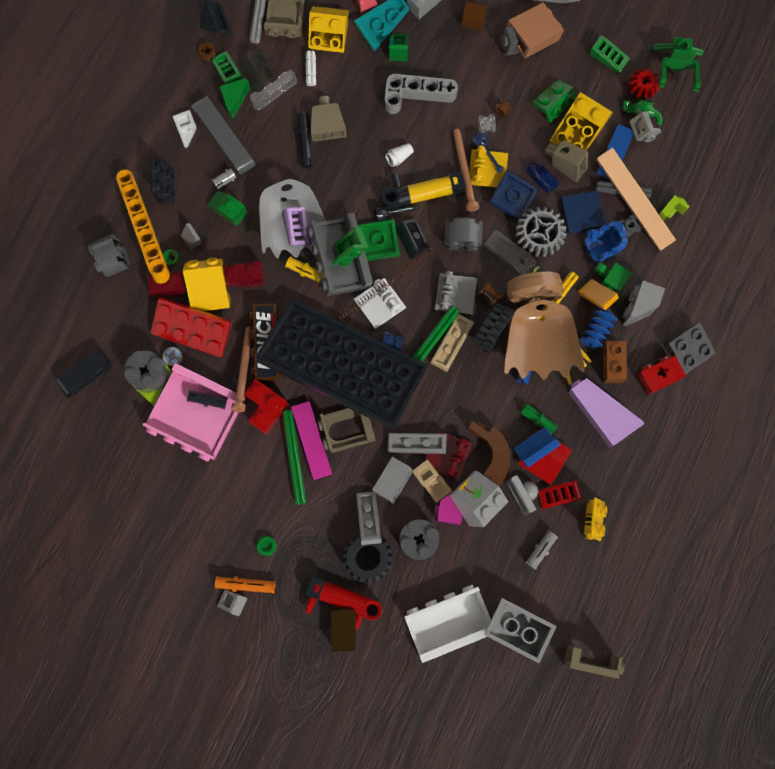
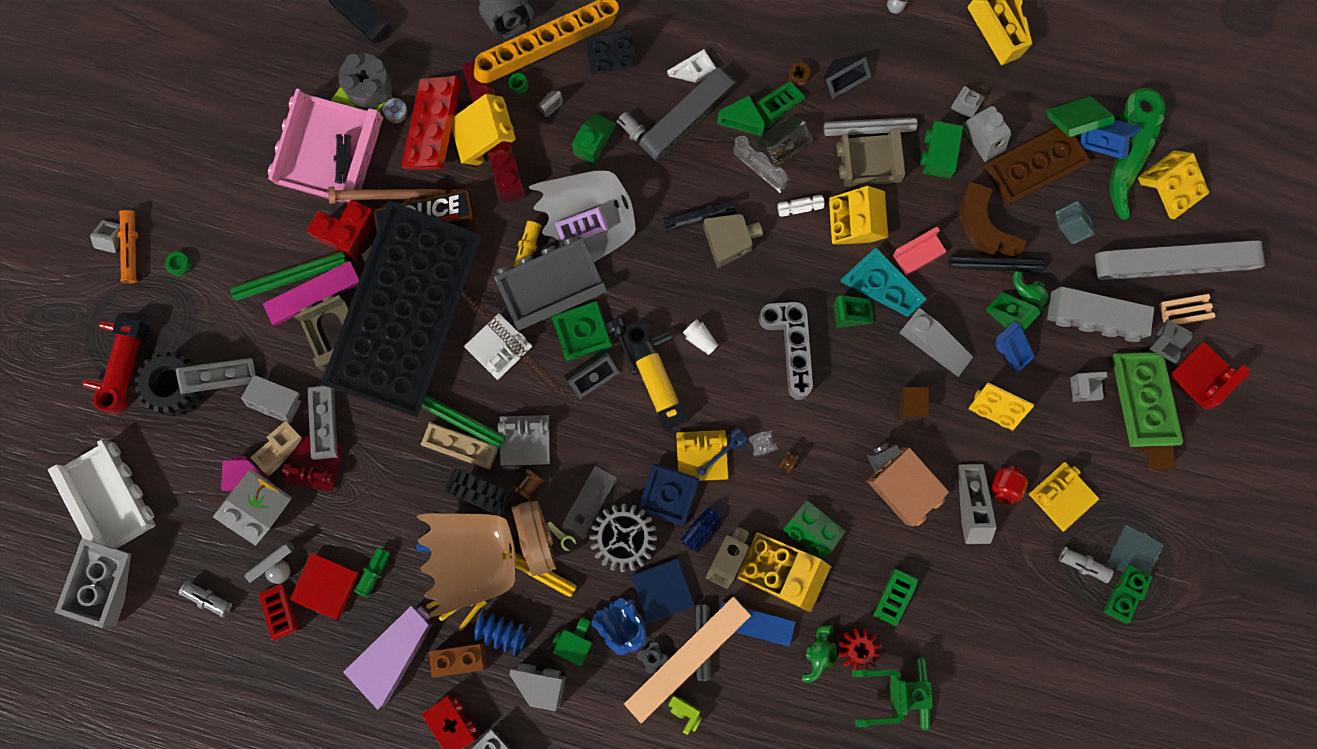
camera: 80 degrees right, 0 degrees up
(343, 630) = (79, 368): dark brown panel -> none
(349, 247) = (555, 293): green bracket -> none
(393, 342) = (447, 370): dark blue wheel -> none
(423, 550) = (187, 436): dark grey brick -> none
(463, 233) = (599, 435): dark grey brick -> none
(472, 205) = (645, 441): nougat bar -> none
(499, 451) = (319, 528): reddish brown arch -> none
(536, 447) = (329, 572): blue panel -> none
(572, 660) = (63, 706): dark tan panel -> none
(597, 529) = (242, 663): yellow hinge -> none
(598, 294) = (545, 625): light orange tile -> none
(643, 127) = (791, 656): light grey bracket -> none

